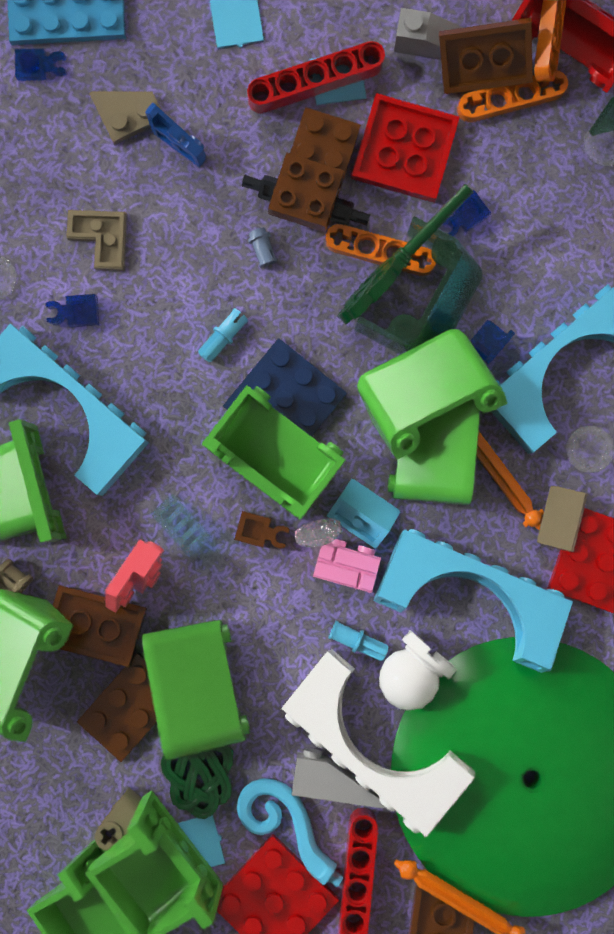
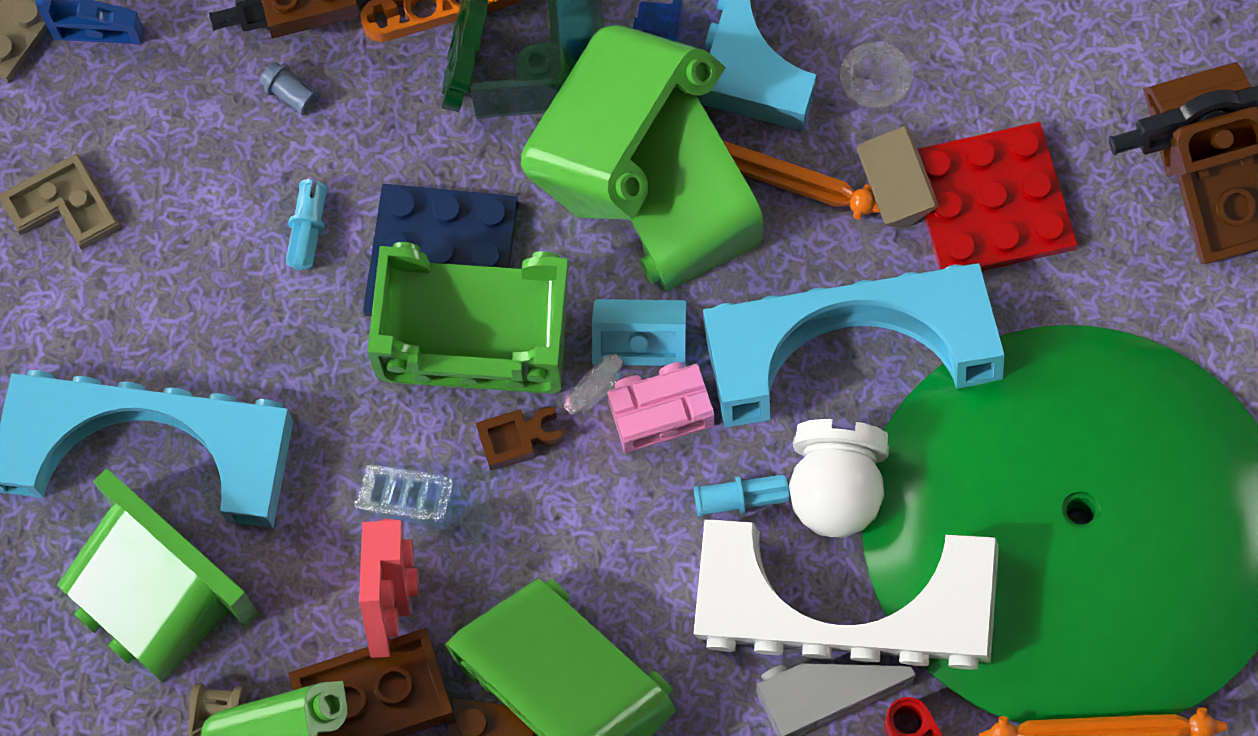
camera: 30 degrees left, 15 degrees down
(78, 311) = (92, 310): clear blue plate -> none

